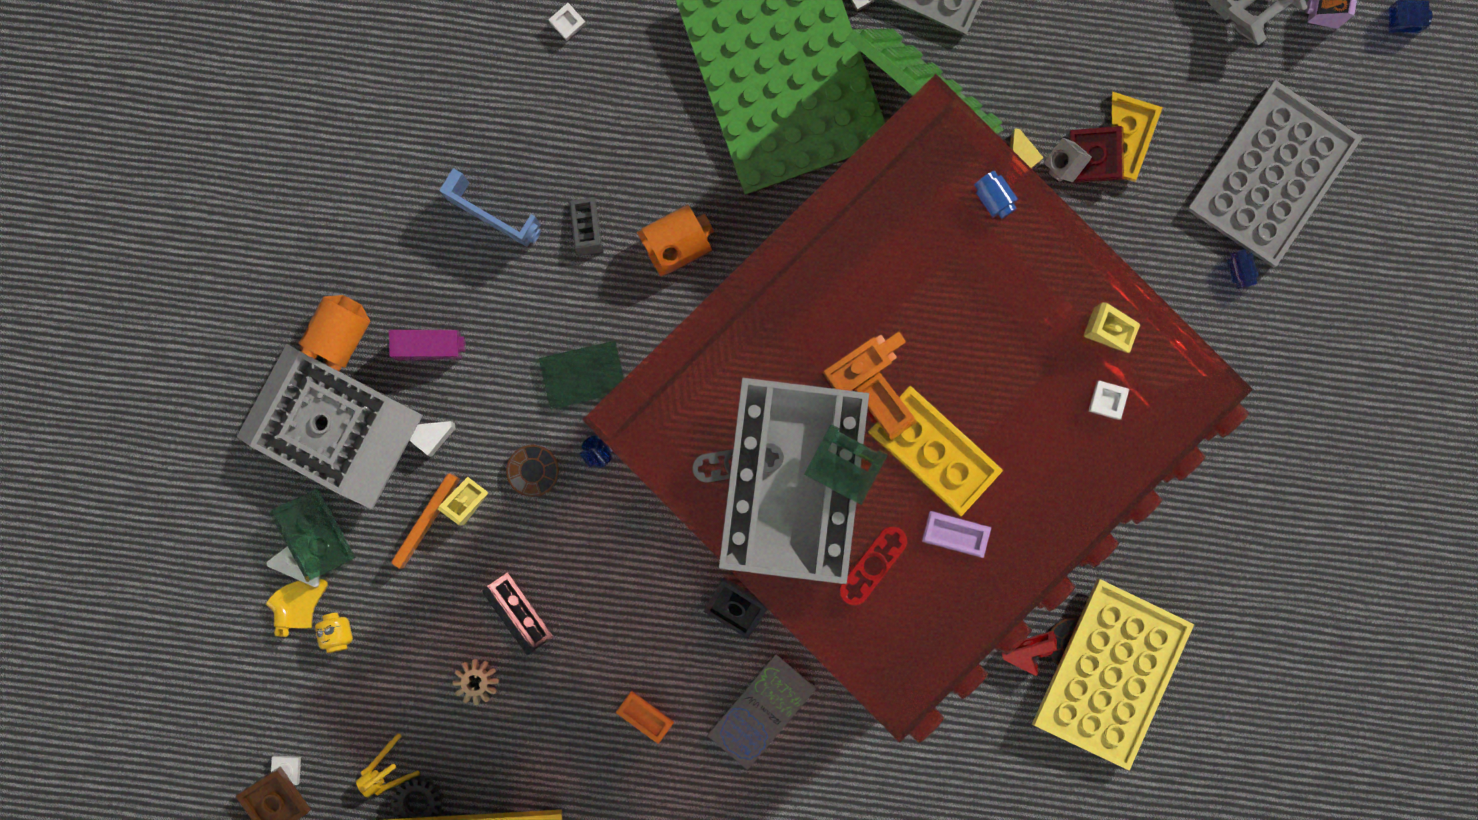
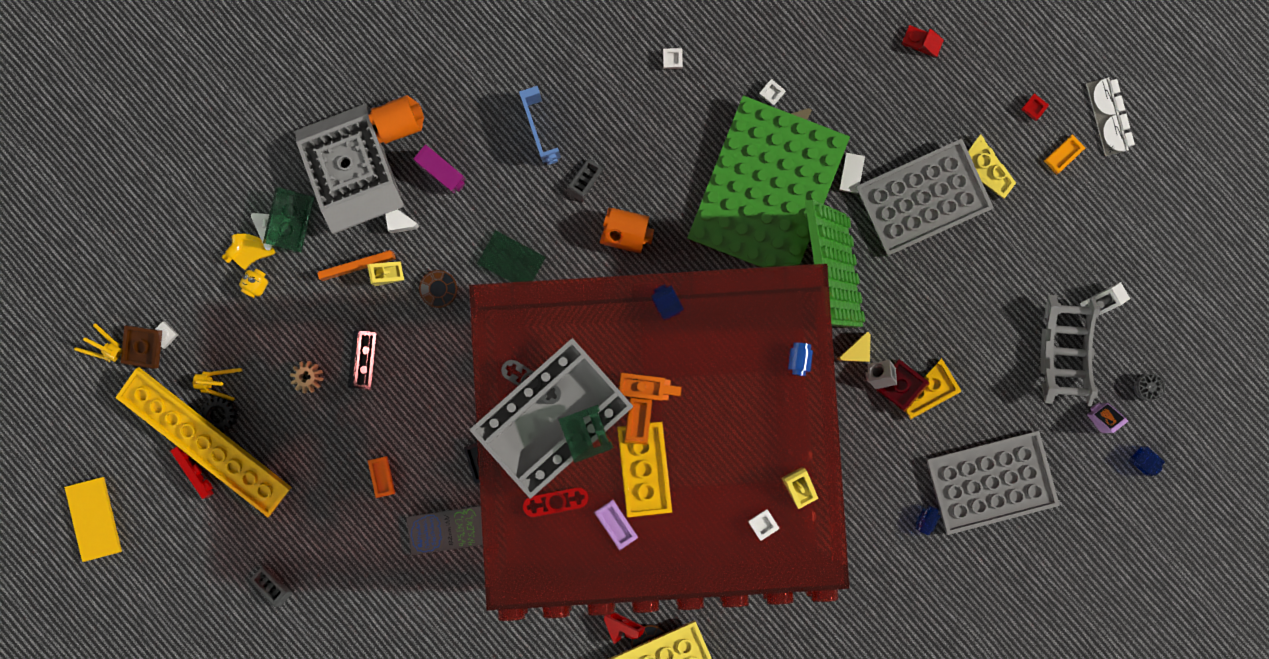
camera: 45 degrees right, 0 degrees up
(806, 256) = (666, 302): none -> clear blue brick

